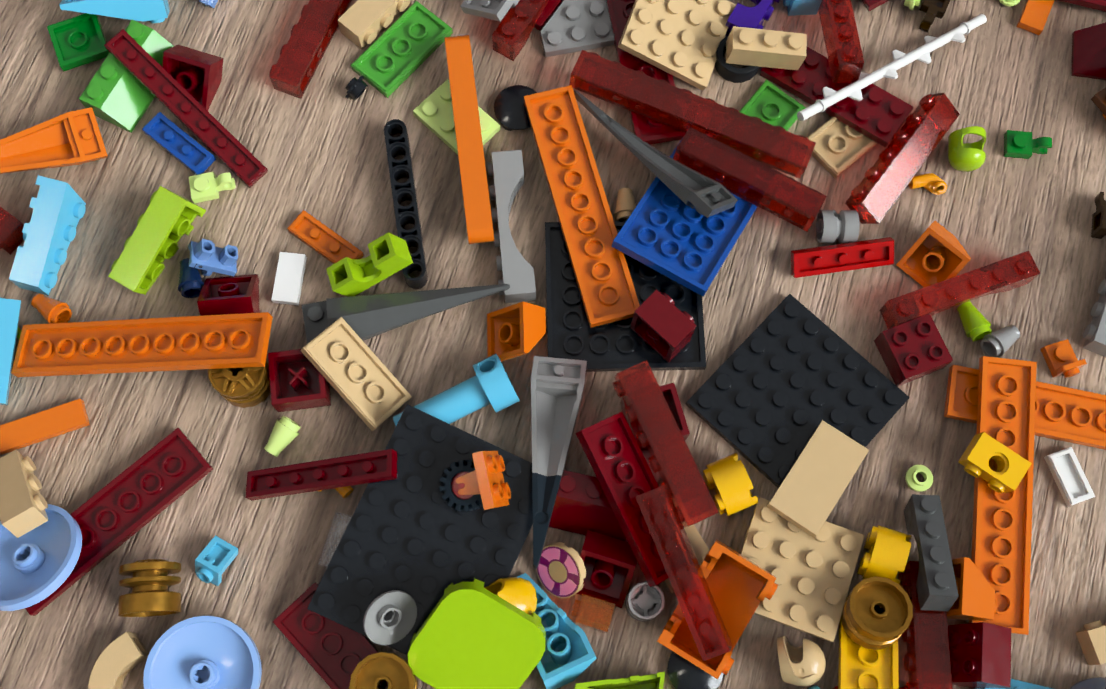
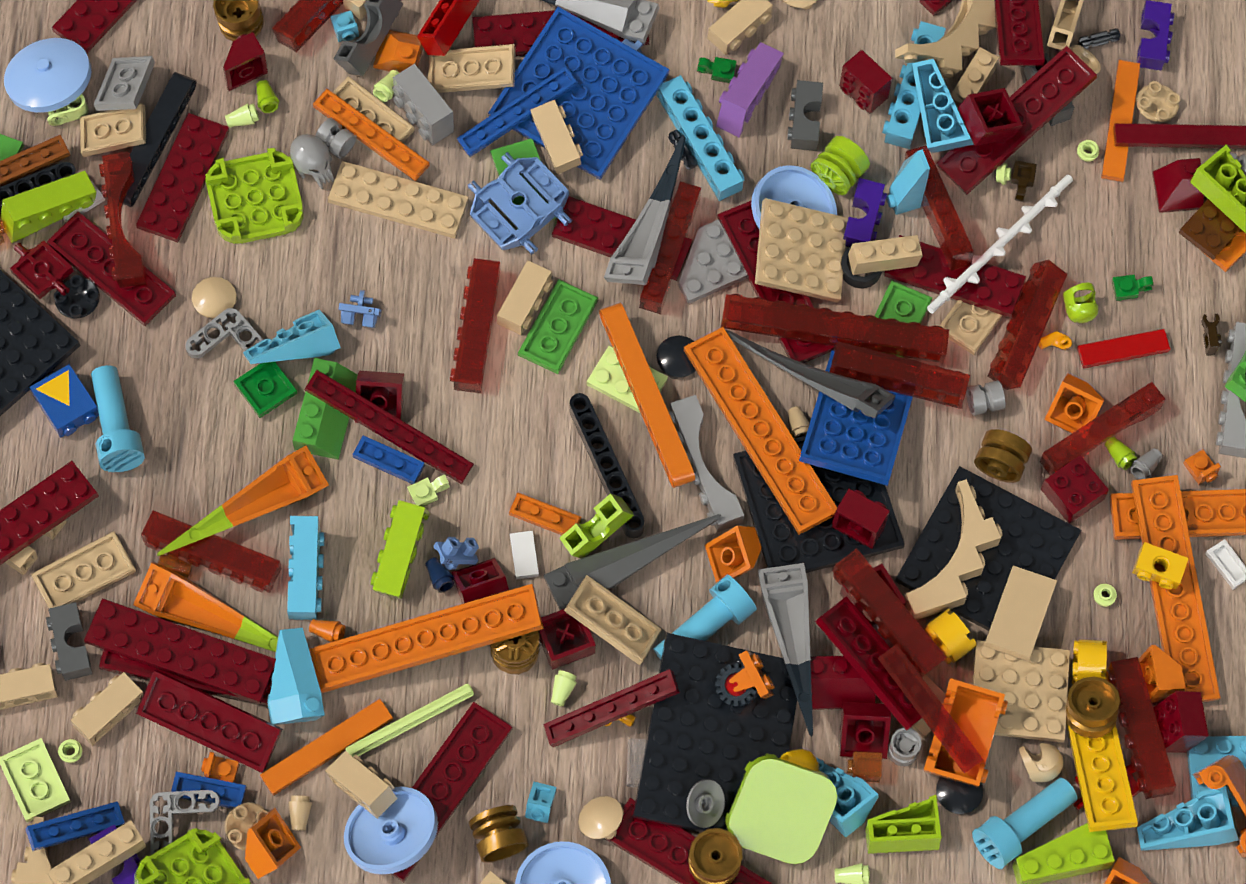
camera: 15 degrees left, 5 degrees down
(104, 432) = (410, 721): none -> yellowish green axle
(275, 598) = (601, 818): none -> tan dish
(356, 88) = (530, 372): black plate -> none
(561, 570) = (830, 738): tile -> none
(740, 429) = (976, 535): none -> tan arch
(841, 293) = (1003, 455): none -> pearl gold wheel
(842, 257) = (1005, 419): red plate -> none
(936, 575) = (1132, 664): dark grey arch -> none
(1002, 208) = (1123, 348): none -> red tile

